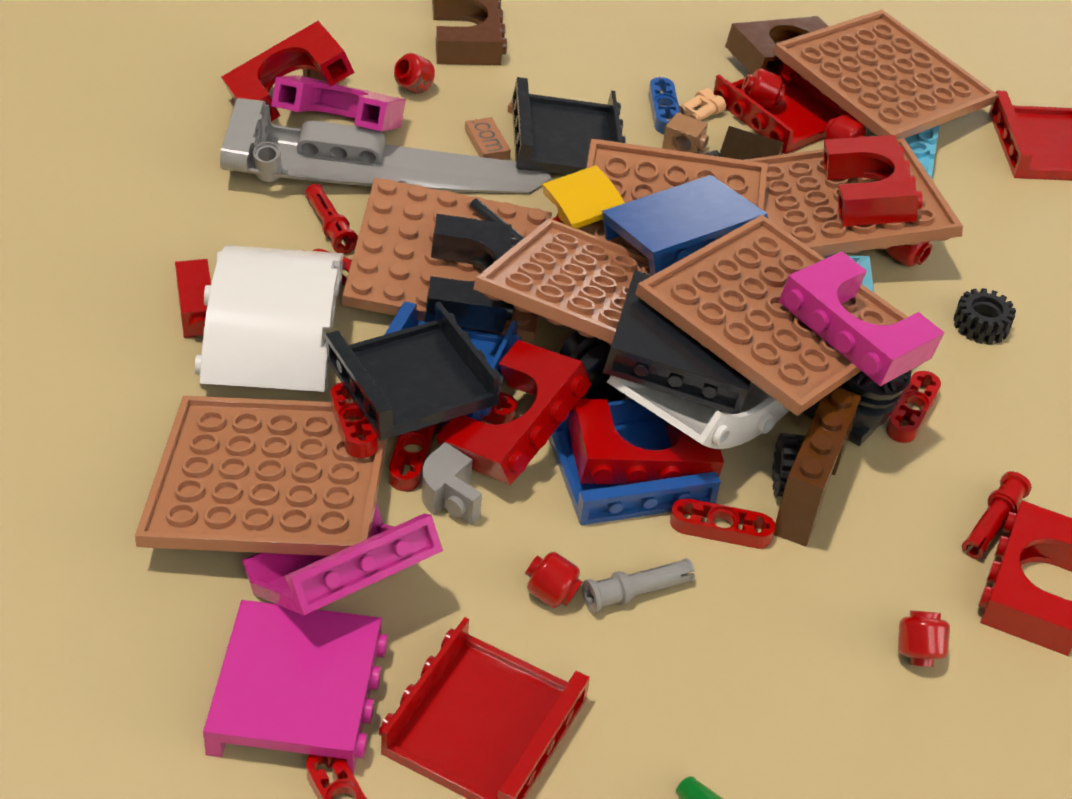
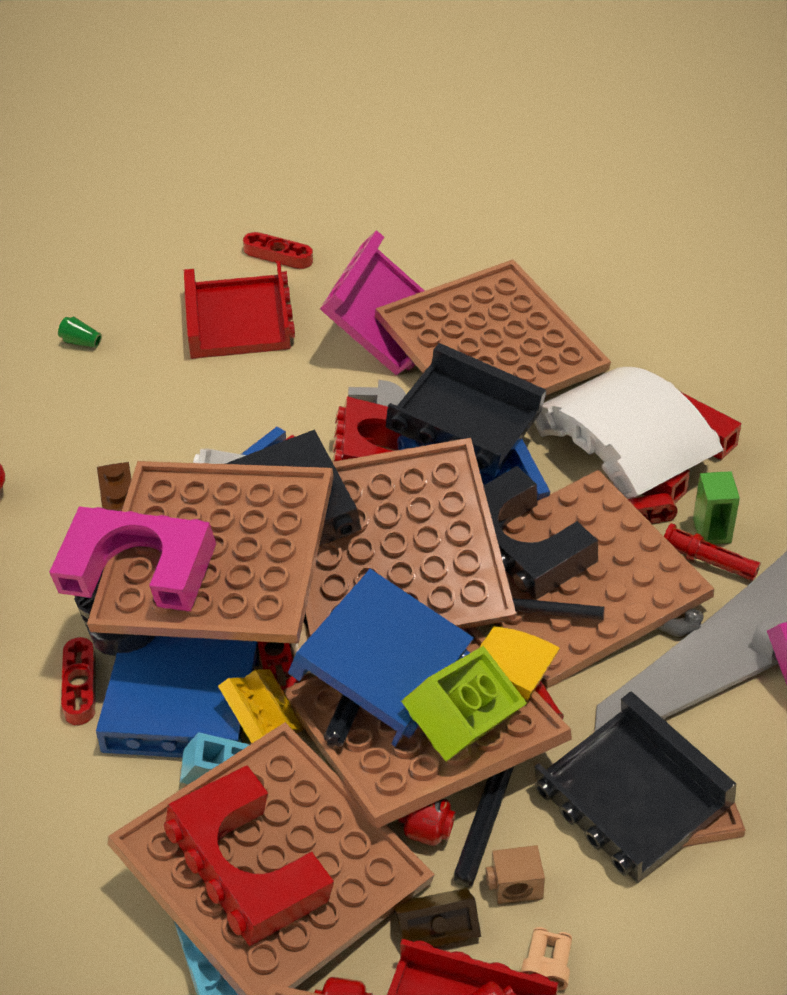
camera: 150 degrees right, 0 degrees up
(295, 216) = (716, 507): none -> bright green brick
(297, 682) = (322, 259): dark pink panel -> none
(487, 138) = (709, 740): nougat tile -> none
(553, 579) = (259, 388): red head -> none
(622, 587) = (185, 440): light grey pin -> none
(657, 99) = (590, 945): blue beam -> none
(664, 160) = (463, 702): none -> lime slope
(984, 316) = (56, 841): black tyre -> none

